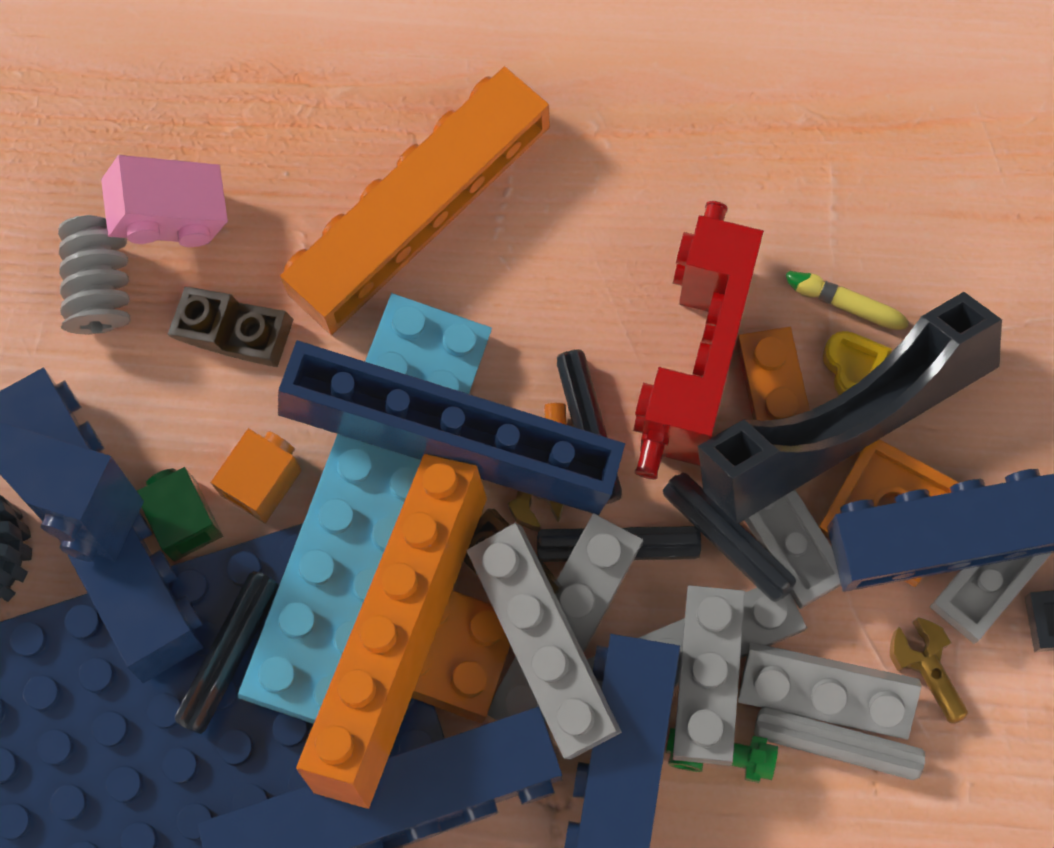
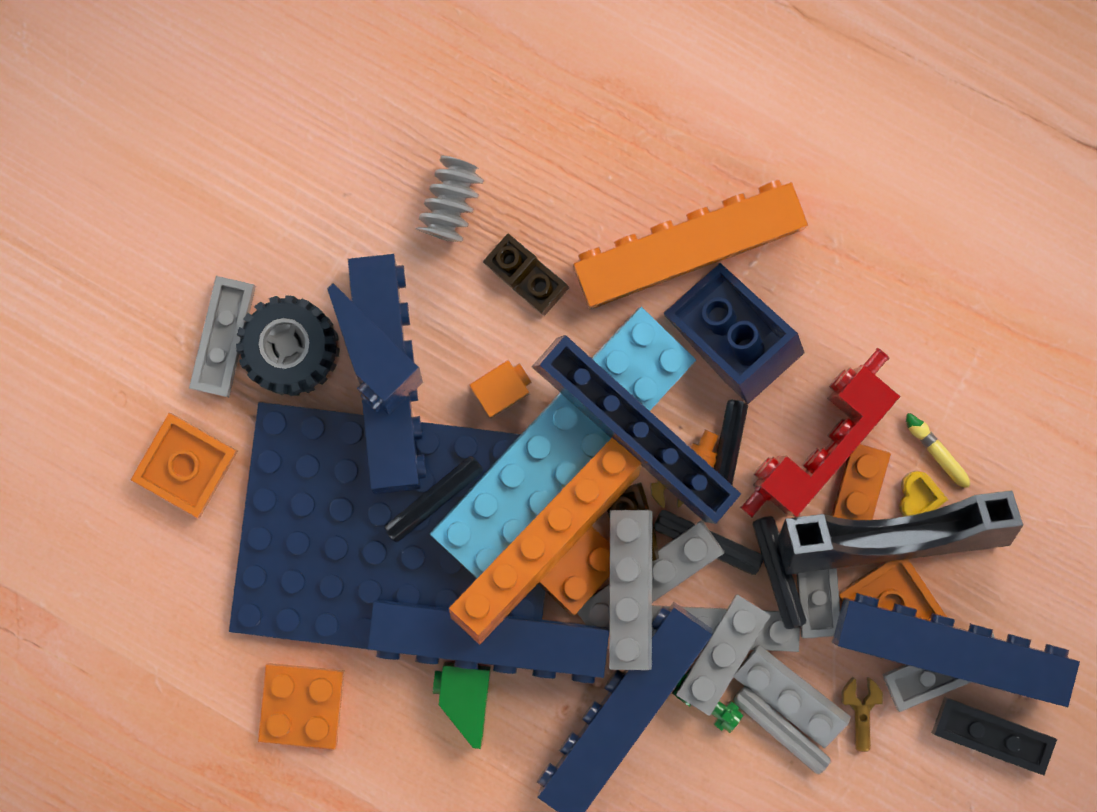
camera: 25 degrees right, 15 degrees up
(163, 200) = (519, 171): bright pink brick -> none
(178, 513) = (440, 389): dark green brick -> none
(527, 273) = (735, 332): none -> dark blue slope

